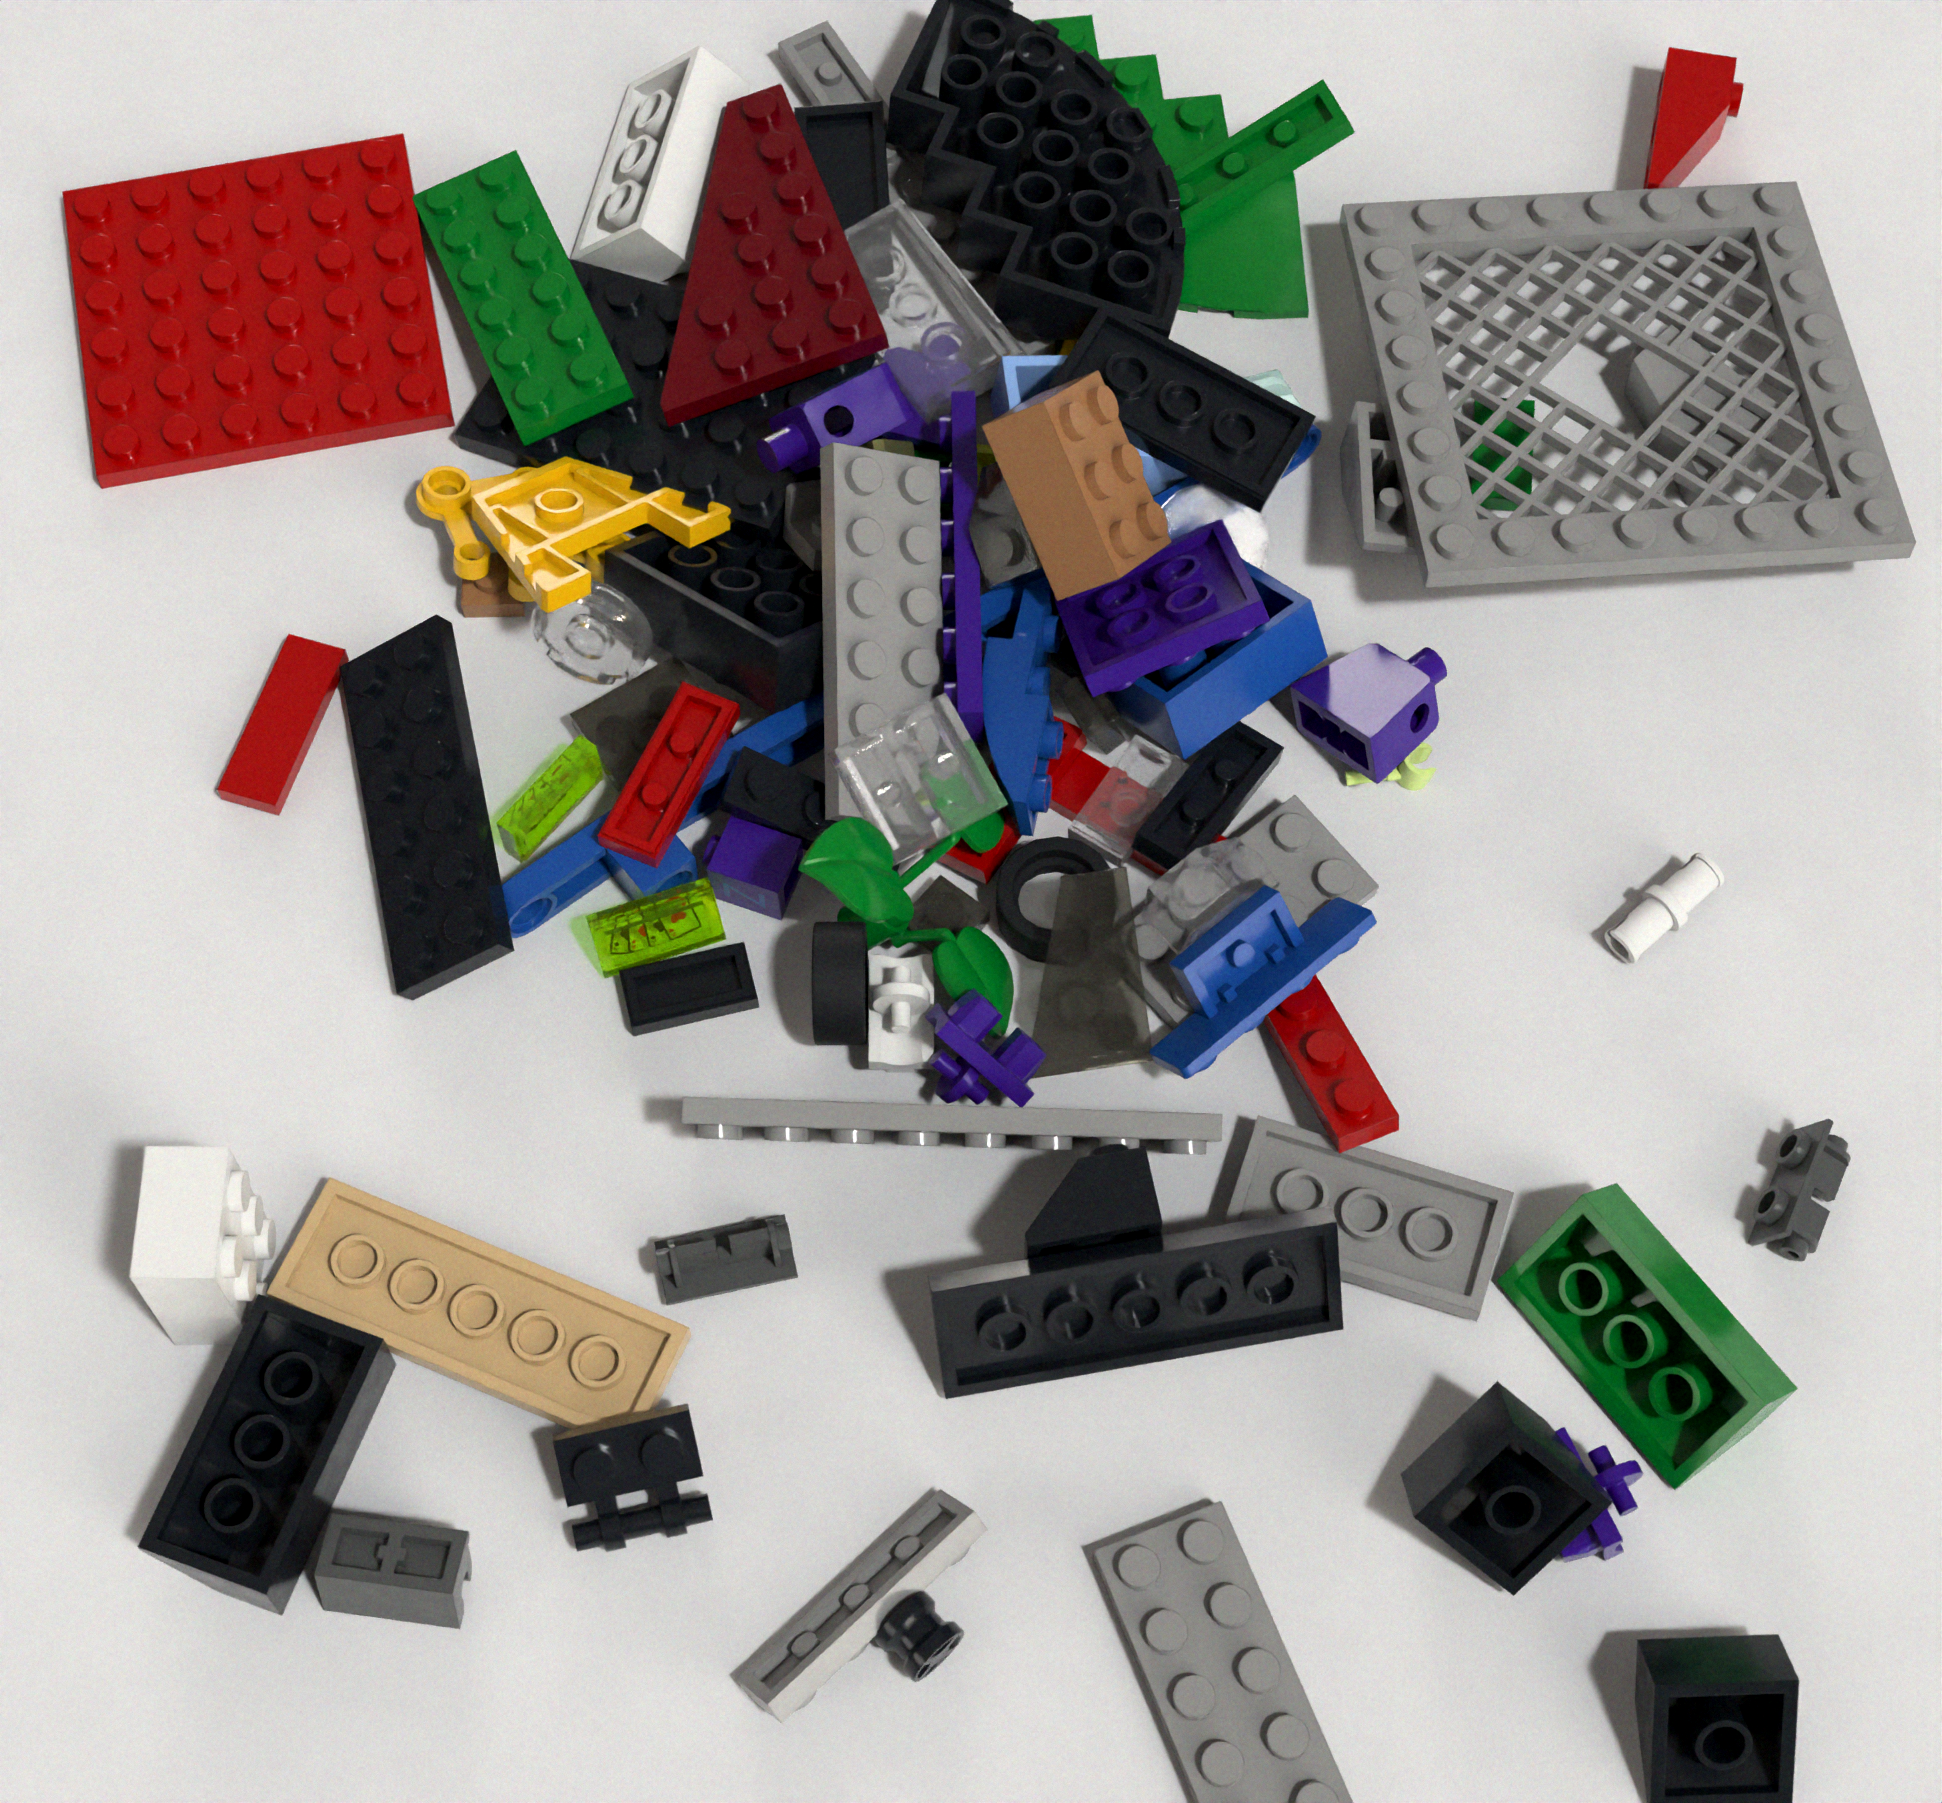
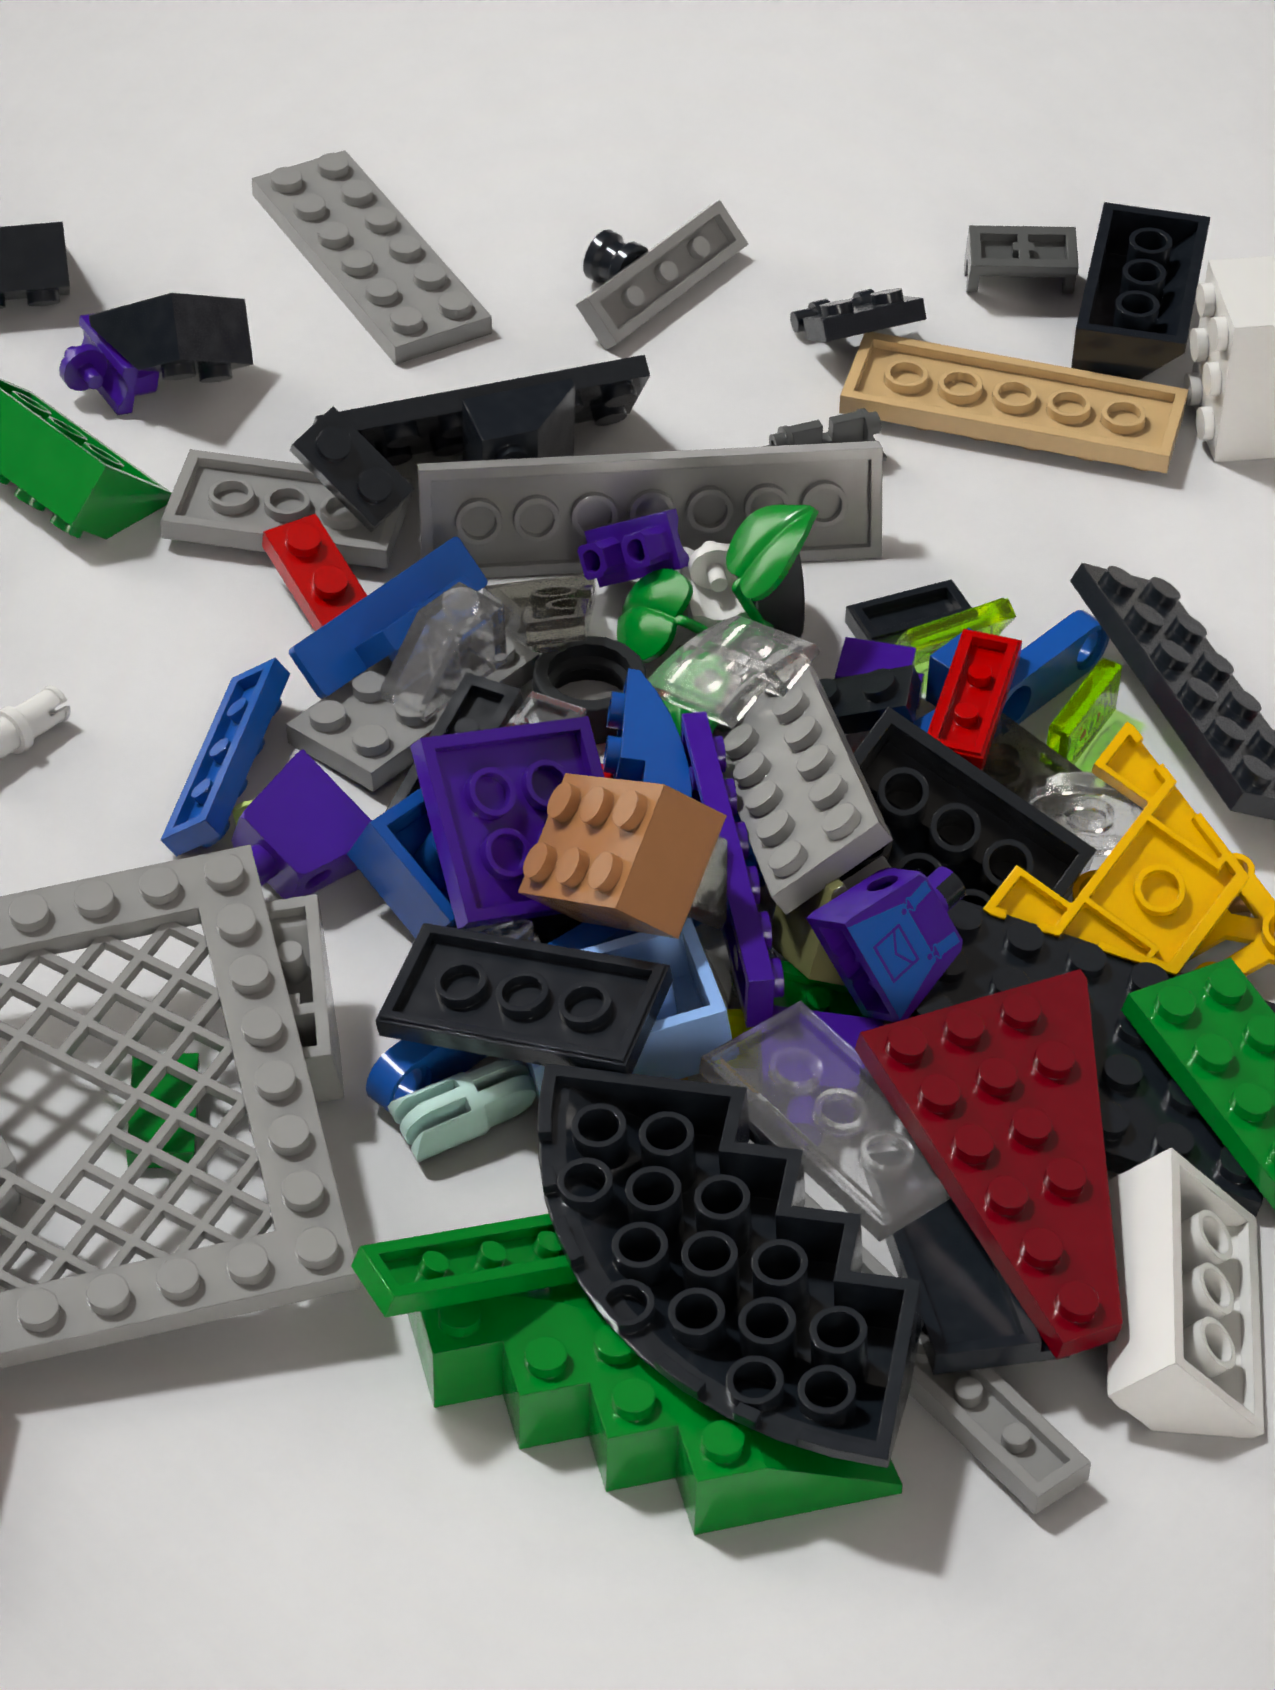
camera: 170 degrees right, 20 degrees down
(1296, 1172) = (351, 469): none -> black plate
(1441, 842) = (226, 758): none -> blue plate

